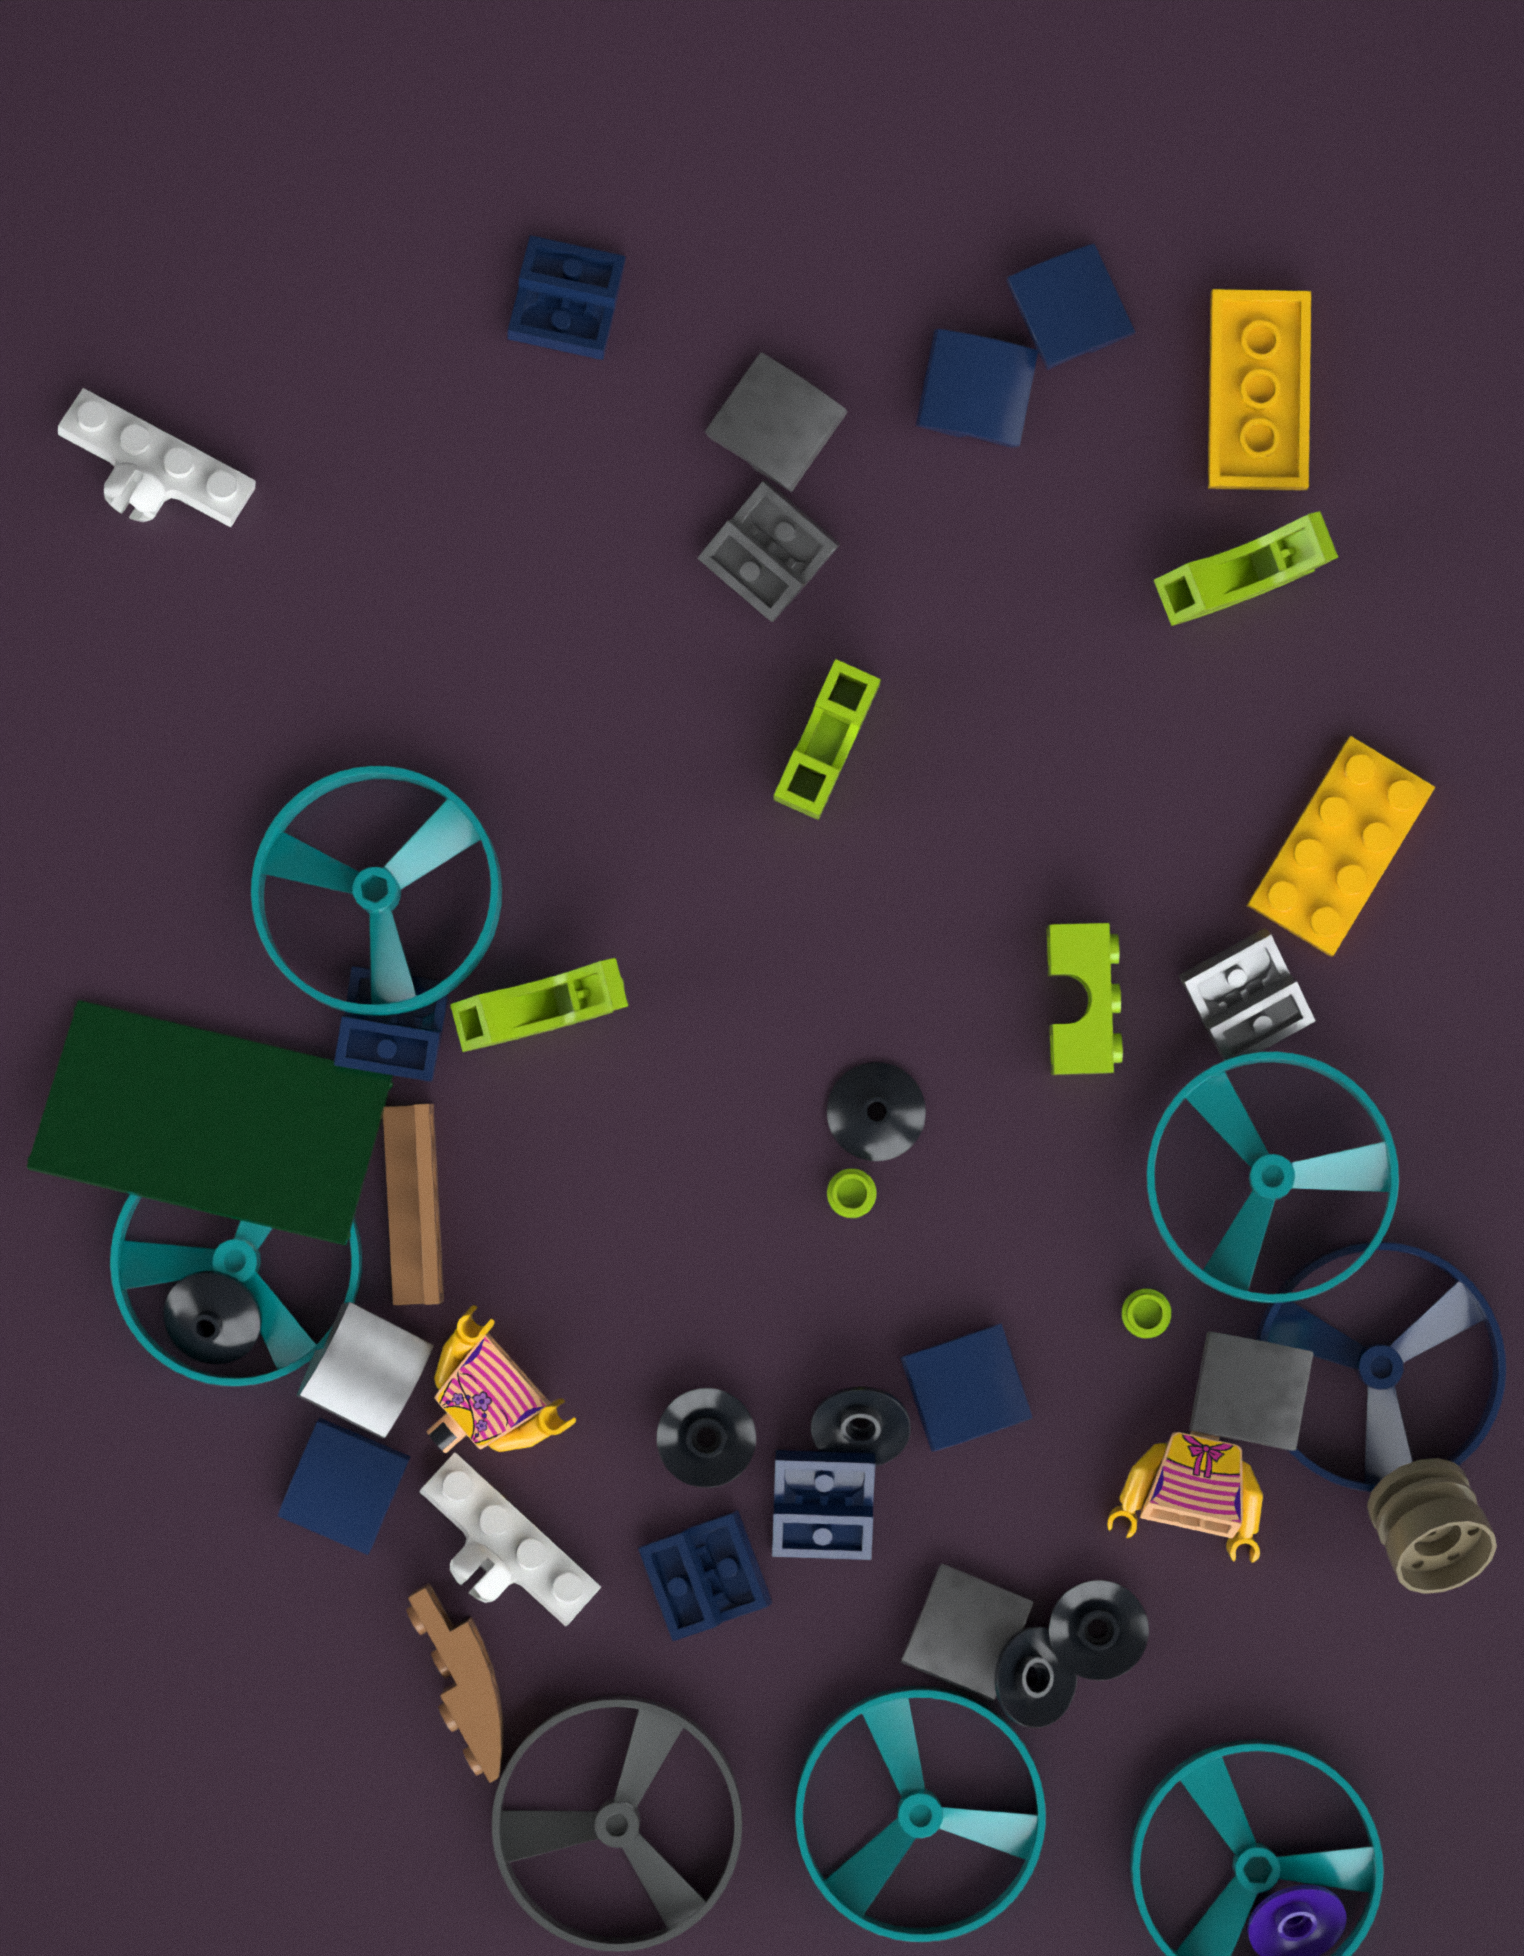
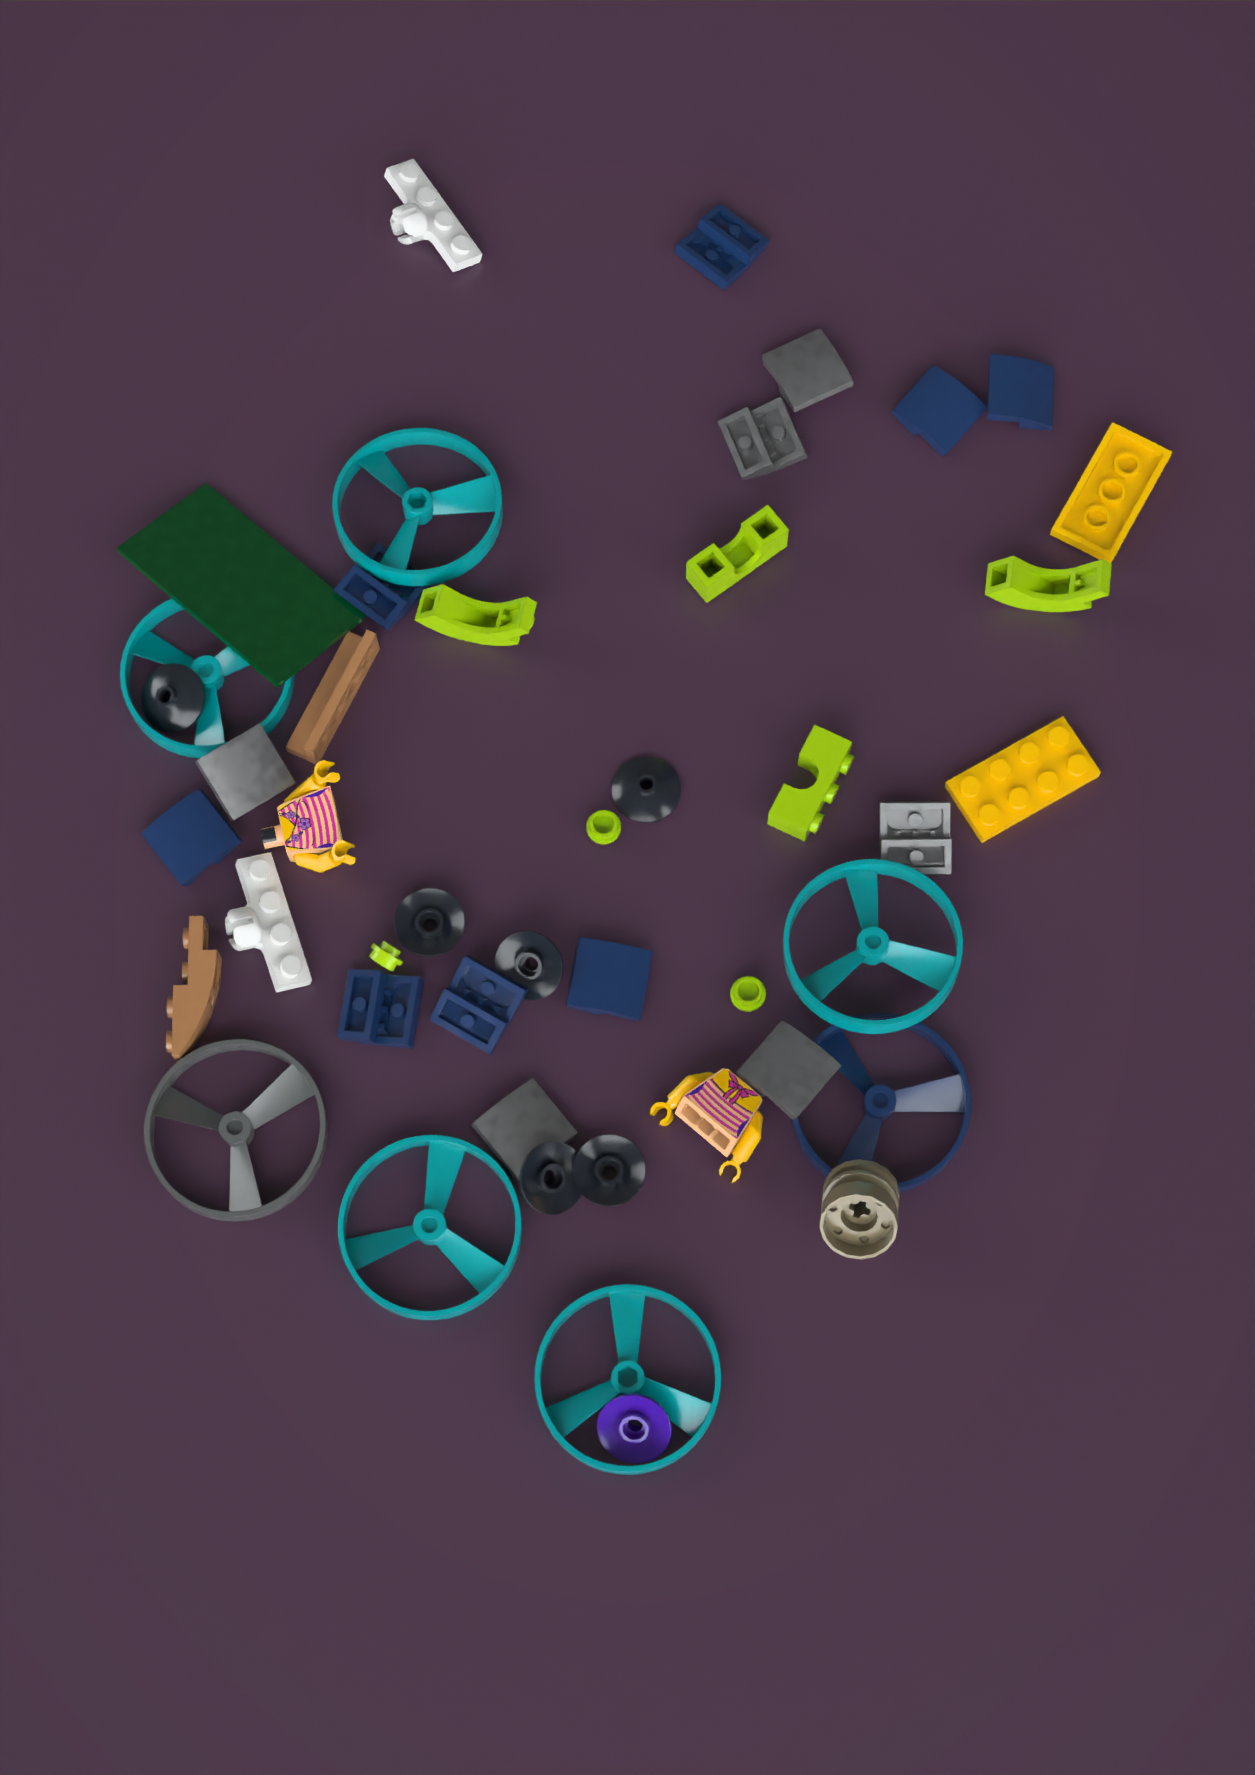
camera: 25 degrees right, 15 degrees down
(675, 1508) = (386, 955): none -> lime plate

